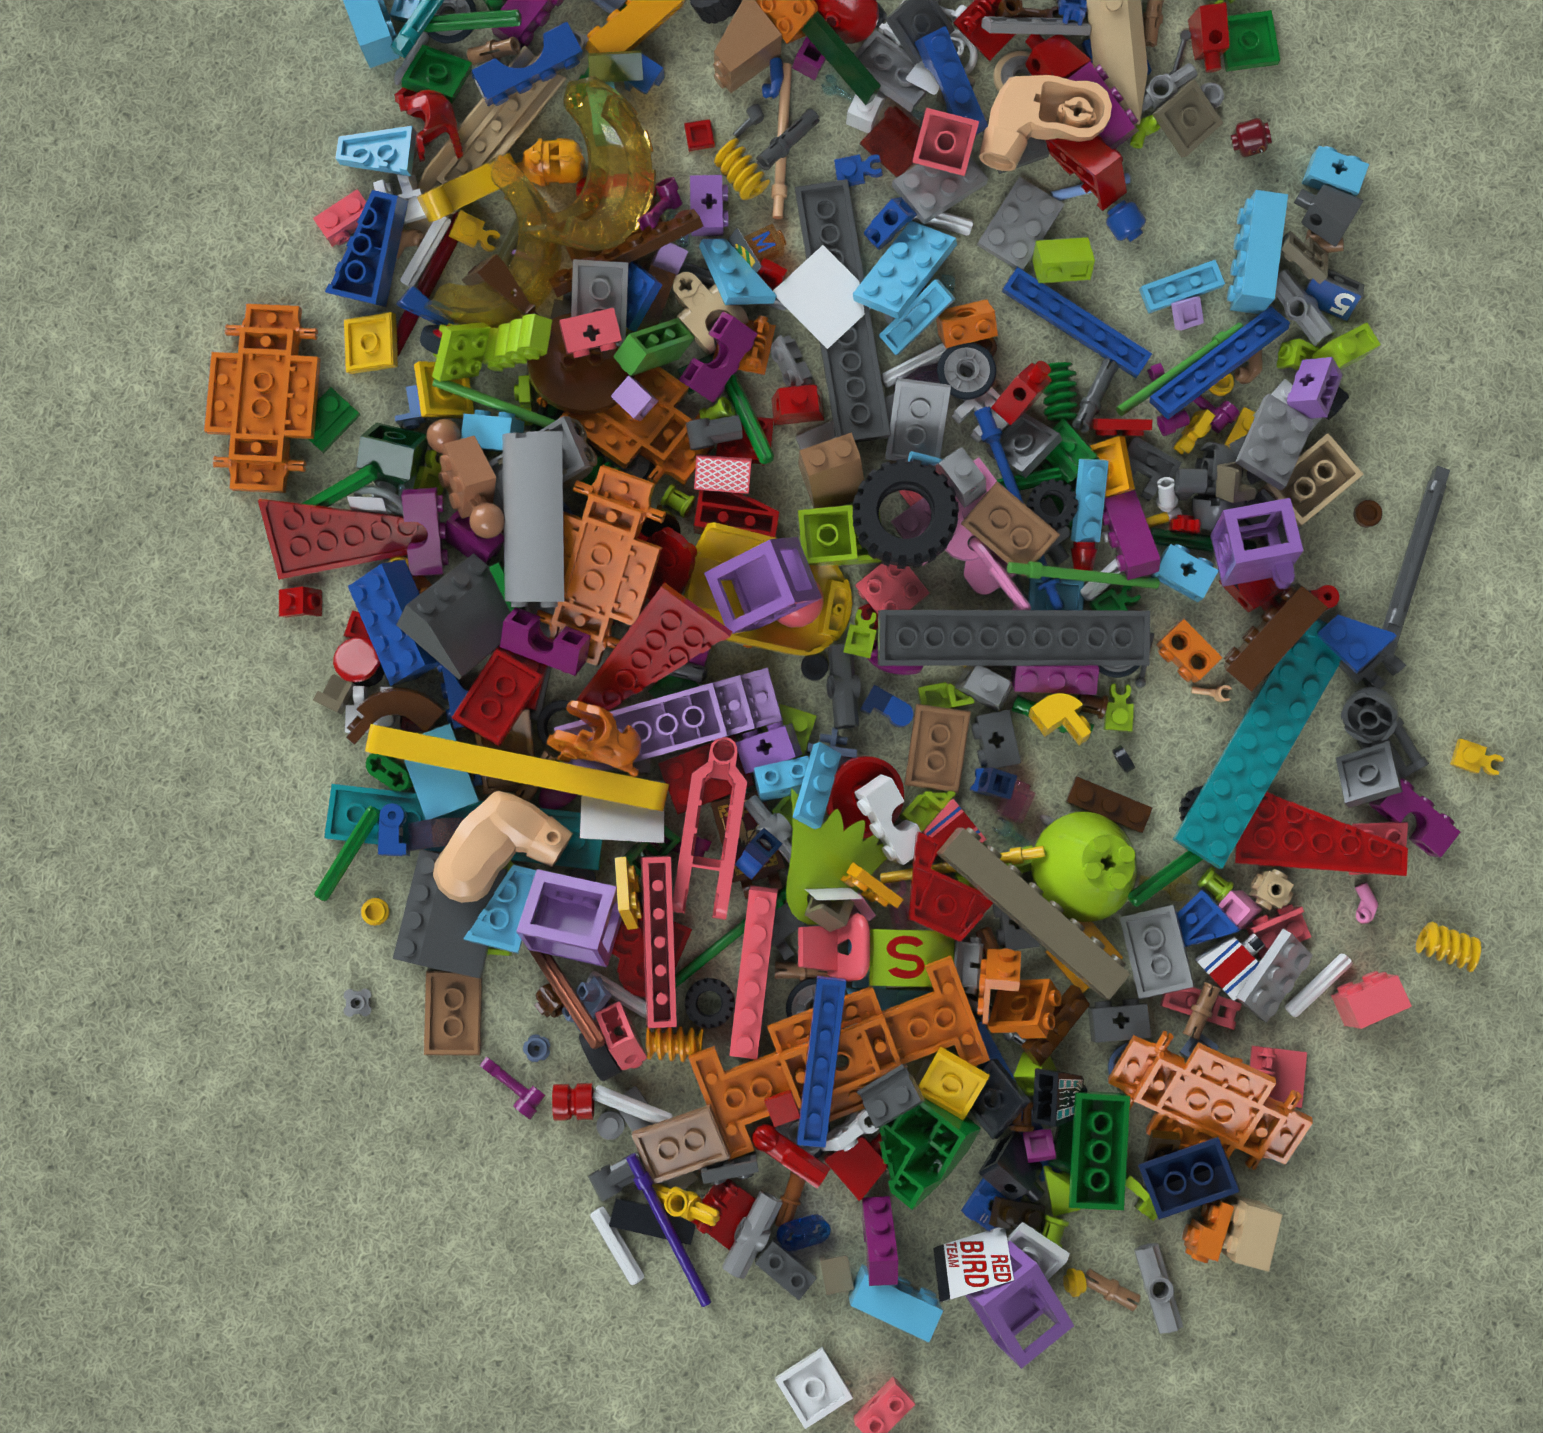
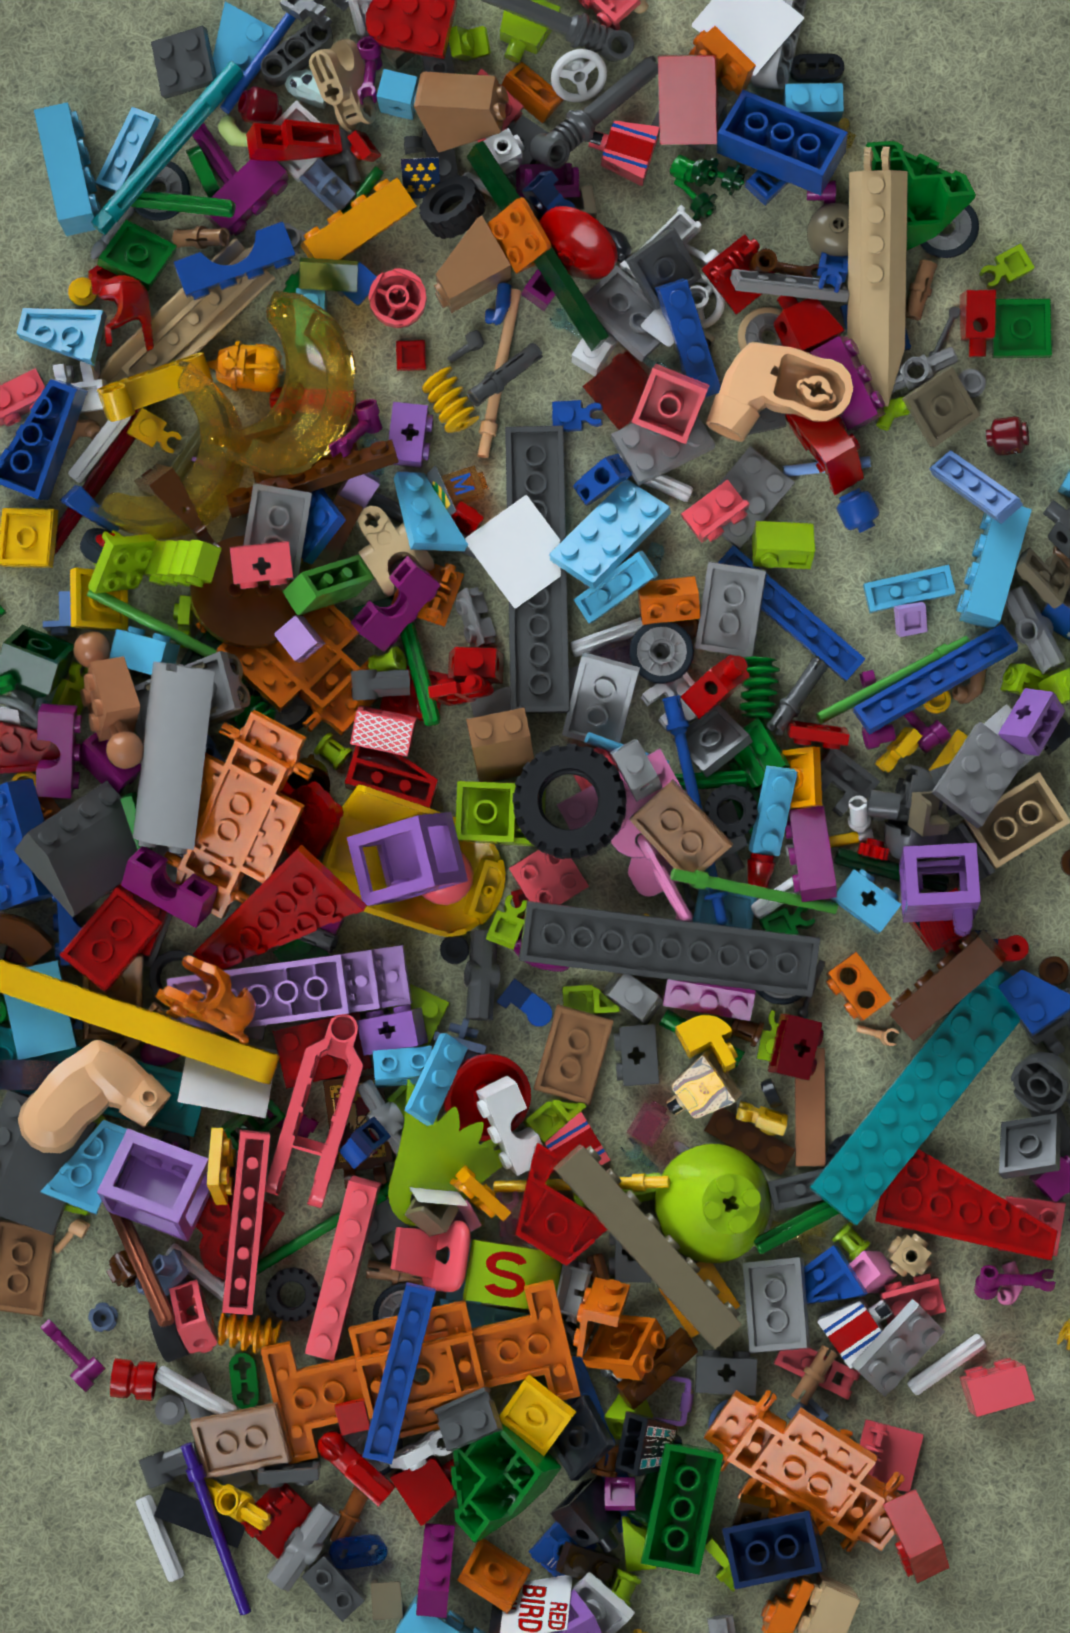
camera: 15 degrees right, 0 degrees up
(390, 115) = (81, 292): none -> yellow plate
(503, 969) = (78, 1228): none -> light nougat hand
(668, 1088) = (237, 1381): none -> green beam
(681, 81) = (397, 298): none -> coral cylinder
(784, 431) = (454, 693): none -> red plate
(933, 1237) = (494, 1575): none -> orange tile
(994, 783) = (627, 1101): dark blue leg -> none
(997, 237) = (715, 511): none -> coral bracket
(1023, 323) = (730, 609): none -> light grey plate
(1061, 762) = (703, 1088): none -> torso
(1085, 1053) = (686, 1402): none -> medium lavender piece
(1124, 784) = (768, 1120): none -> yellow plate
(1134, 724) = (785, 1058): none -> dark red brick
(1157, 844) = (793, 1190): none -> dark grey plate
(1159, 767) = (810, 1116): none -> nougat tile
(1233, 183) = (976, 487): none -> medium blue tile
(1320, 1147) = (918, 1540): none -> wedge
(1349, 901) = (989, 1281): none -> magenta brick
(1363, 612) = (1053, 970): none -> reddish brown tile

